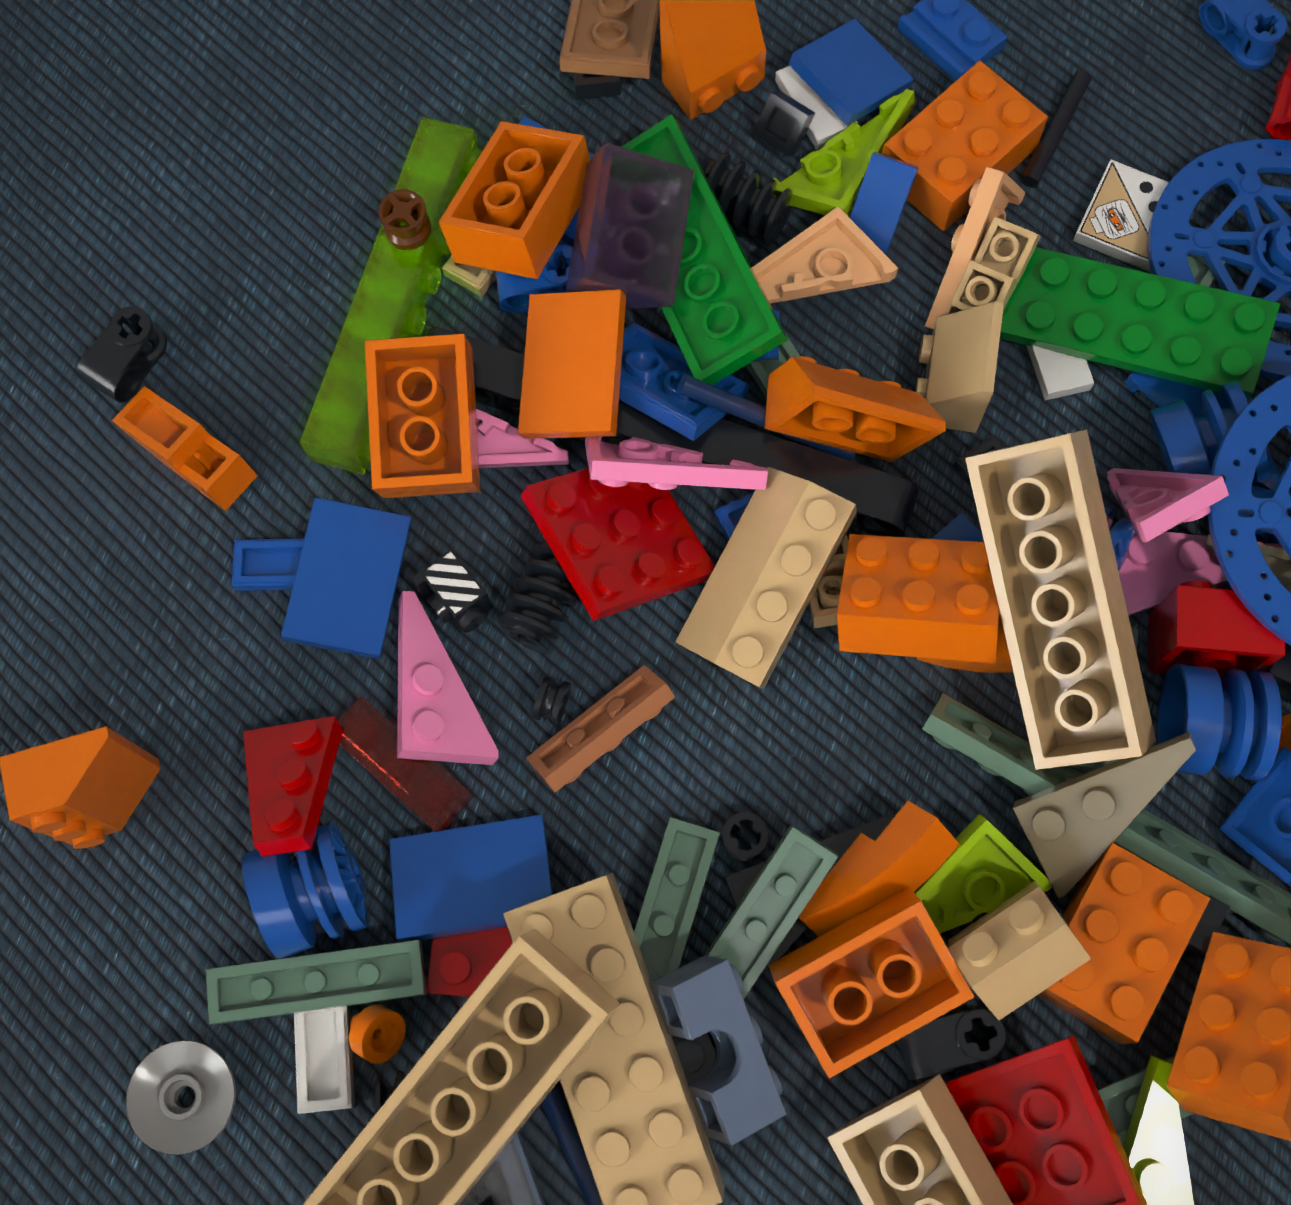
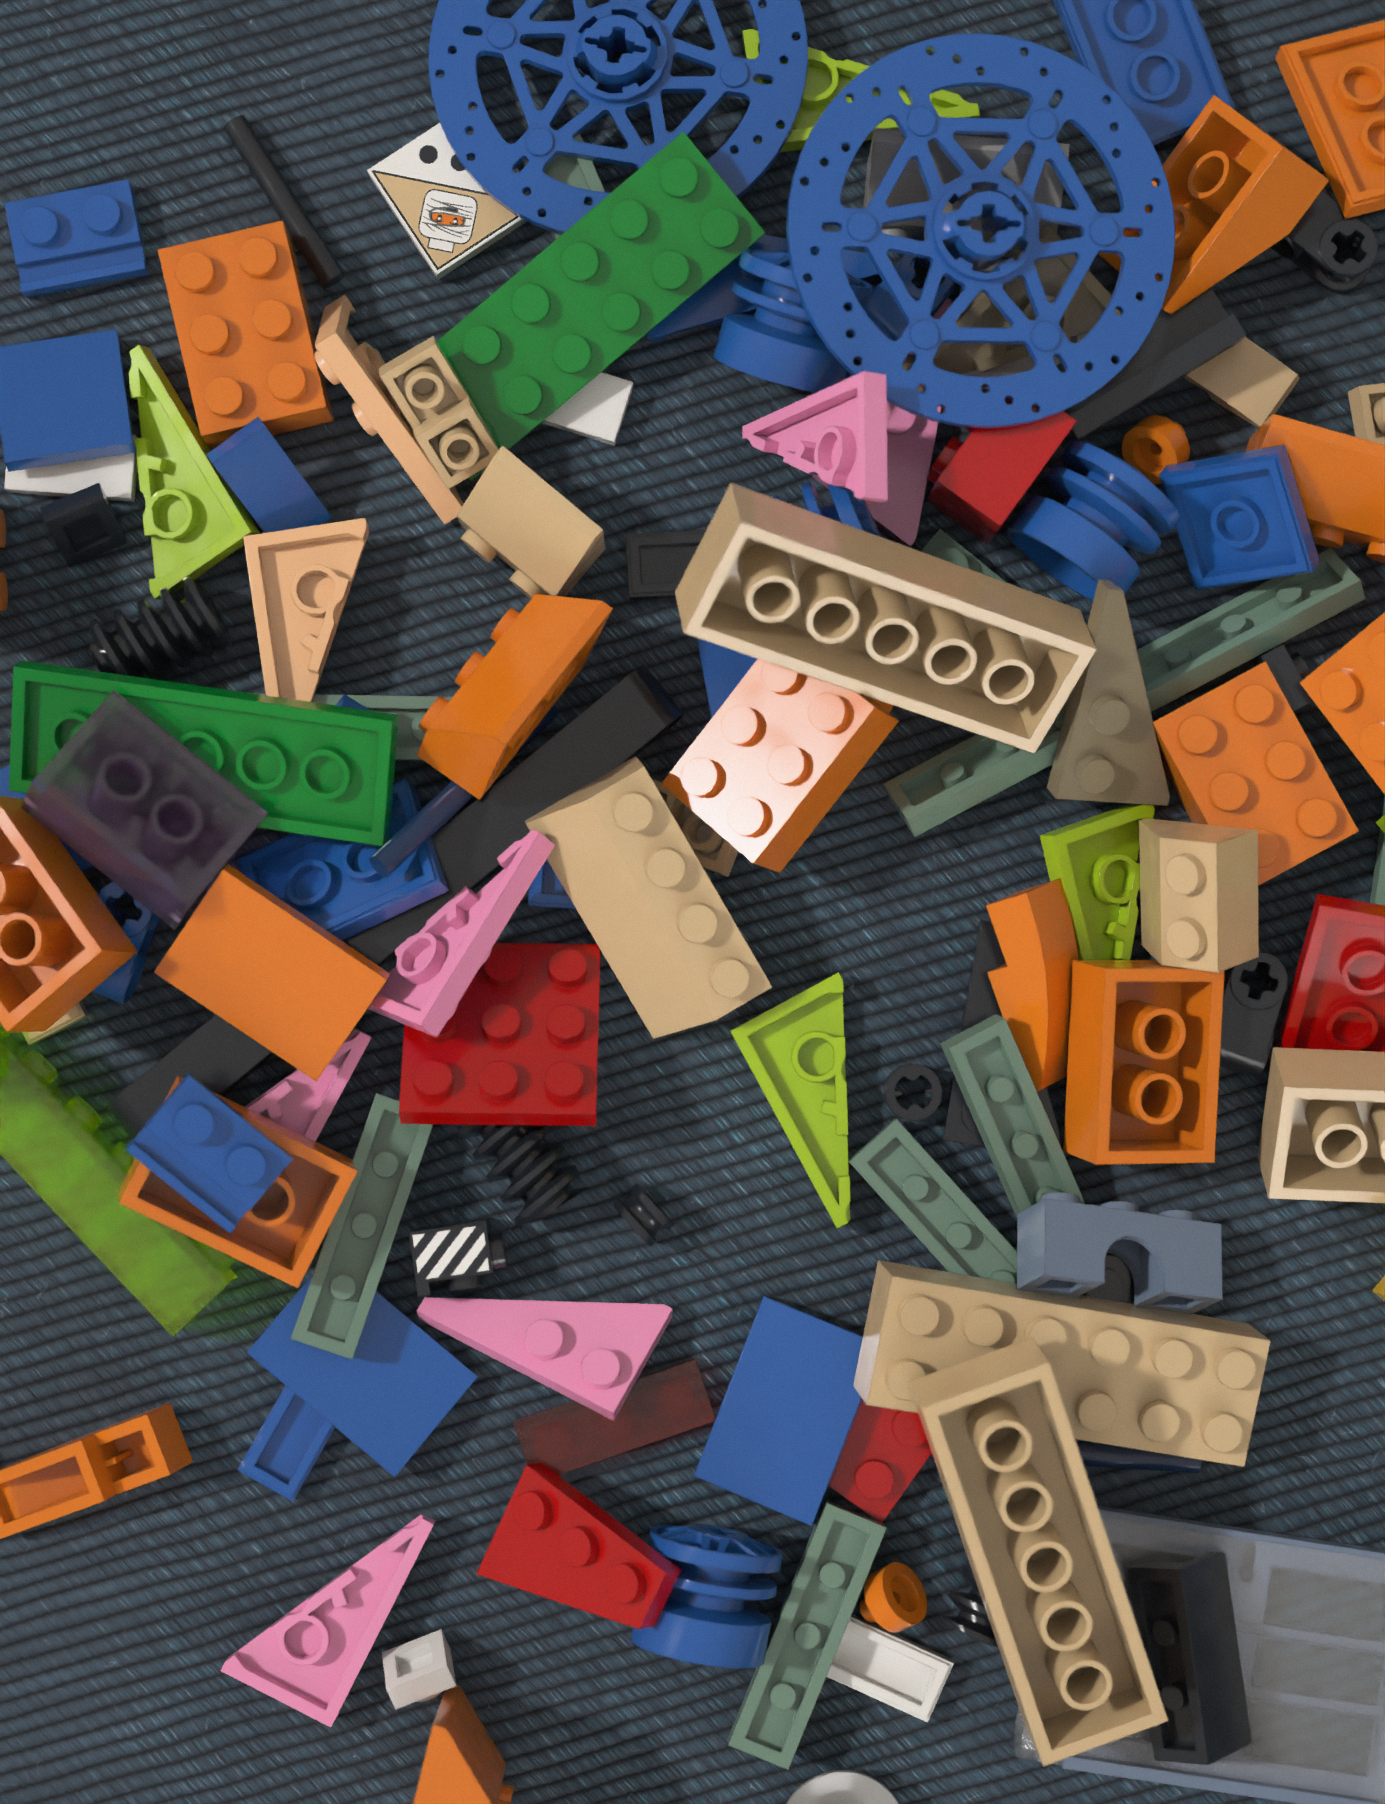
camera: 70 degrees left, 15 degrees up
(141, 658) = (322, 1643): none -> bright pink wing
(155, 728) = (418, 1669): none -> white plate
(429, 375) = (209, 1153): none -> blue plate
(435, 524) = (362, 1231): none -> sand green plate
(600, 728) = (706, 1180): nougat plate -> none
(712, 751) = (801, 1070): none -> lime wing

